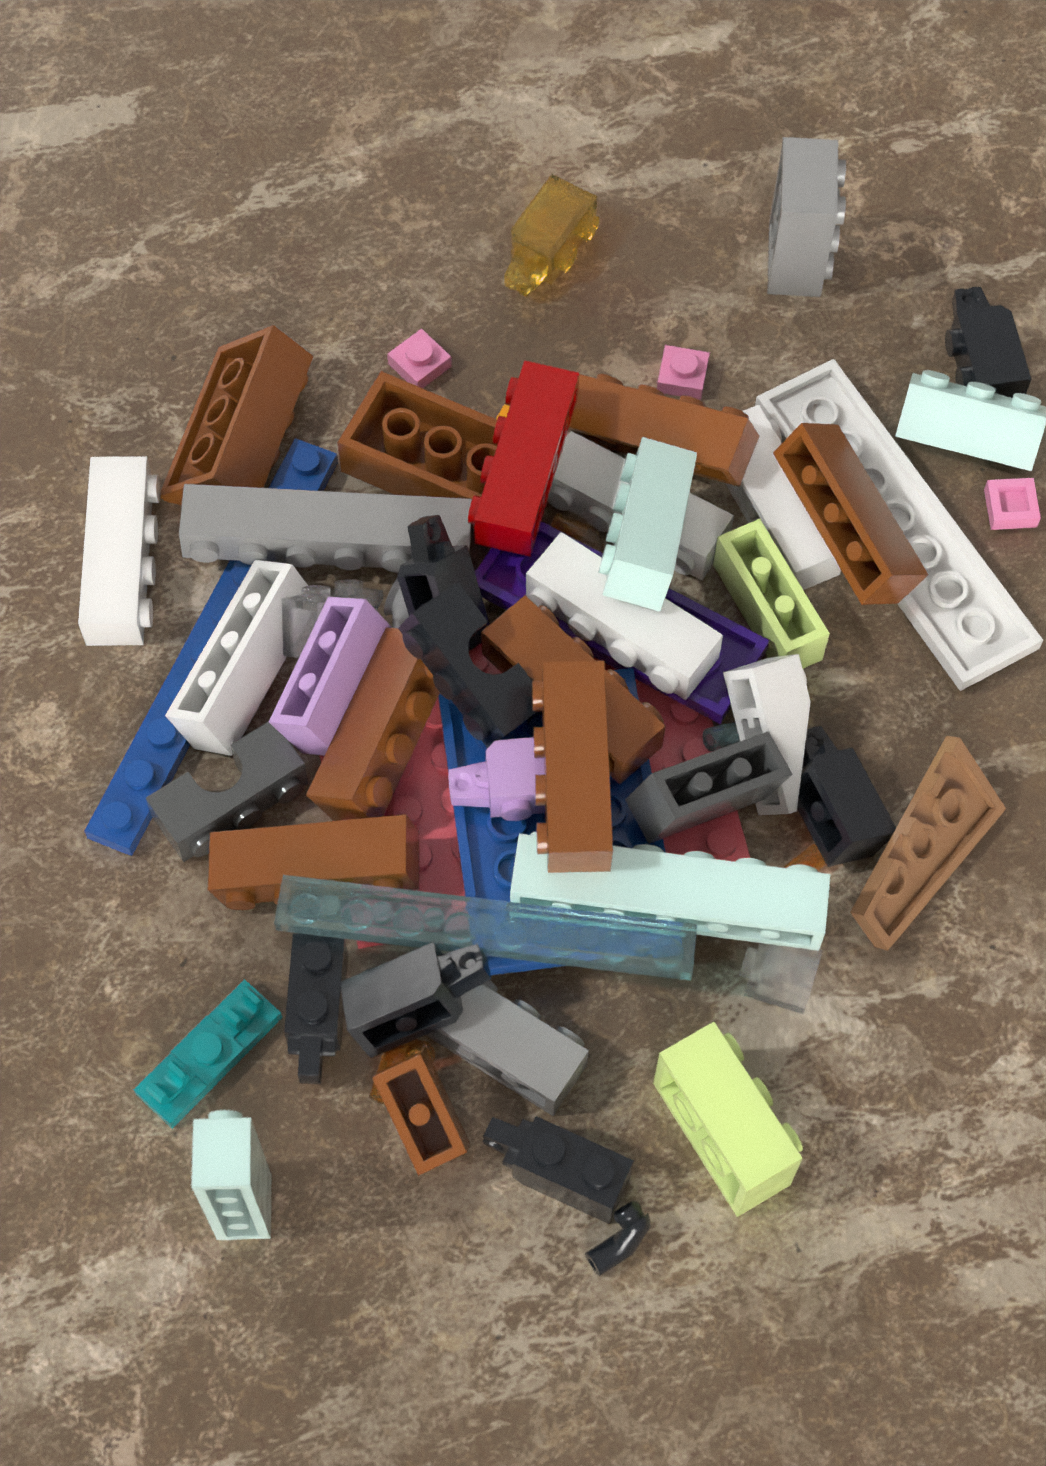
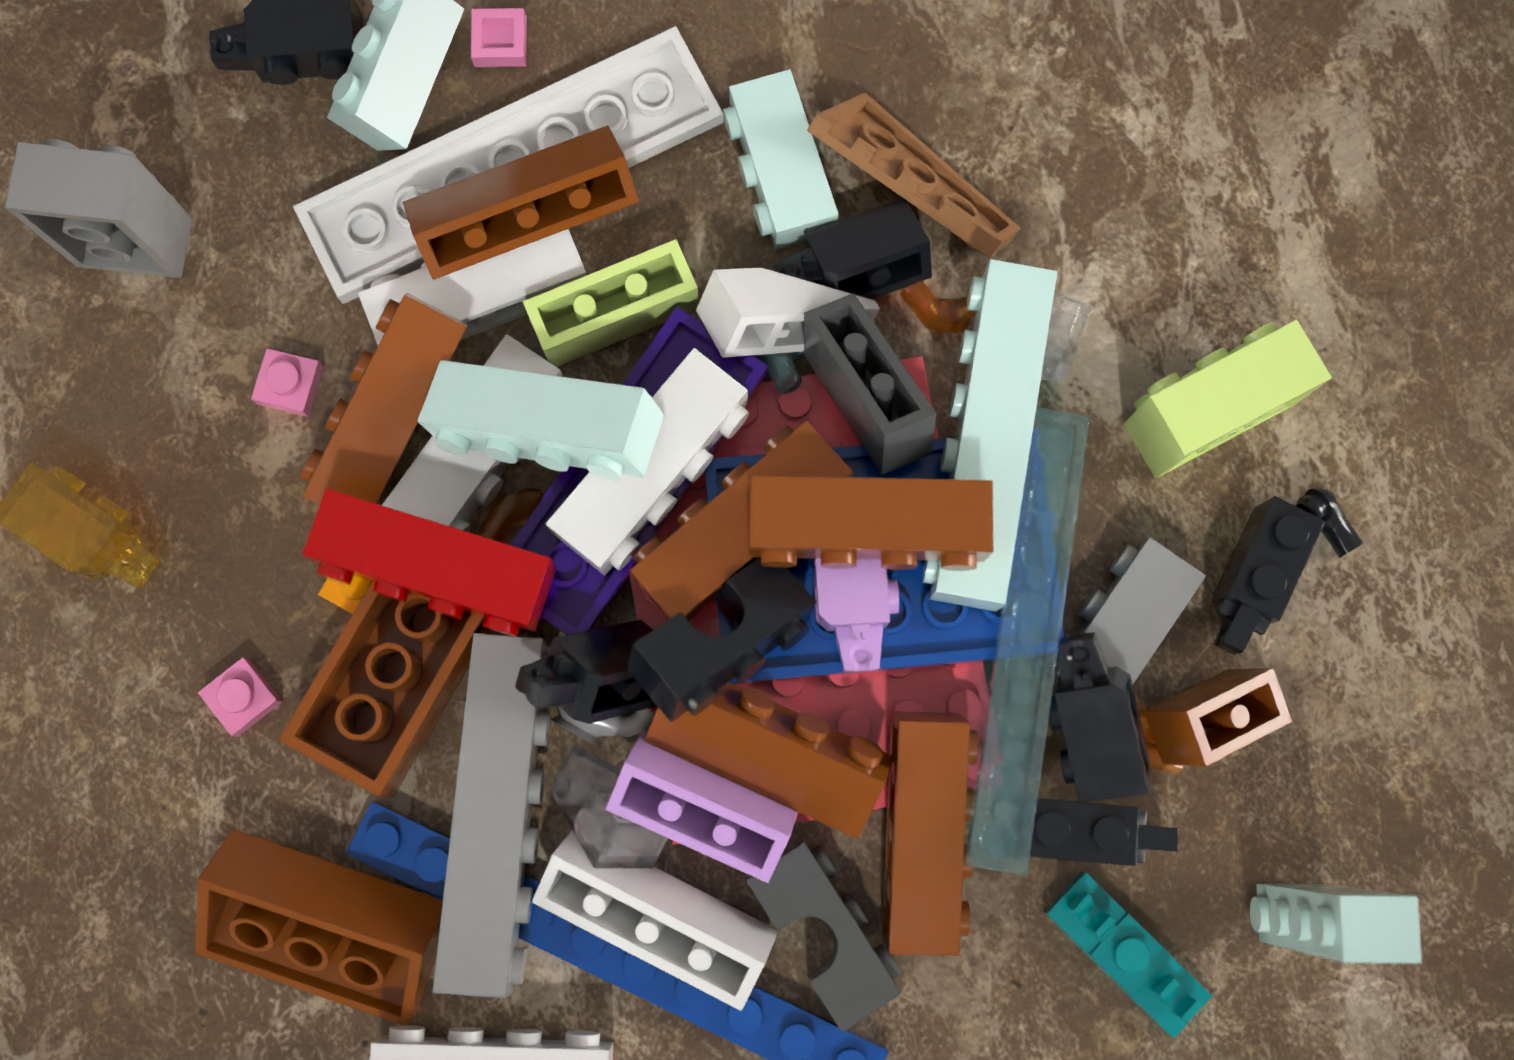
camera: 90 degrees left, 15 degrees up
(906, 739) = (779, 159): none -> light aqua brick

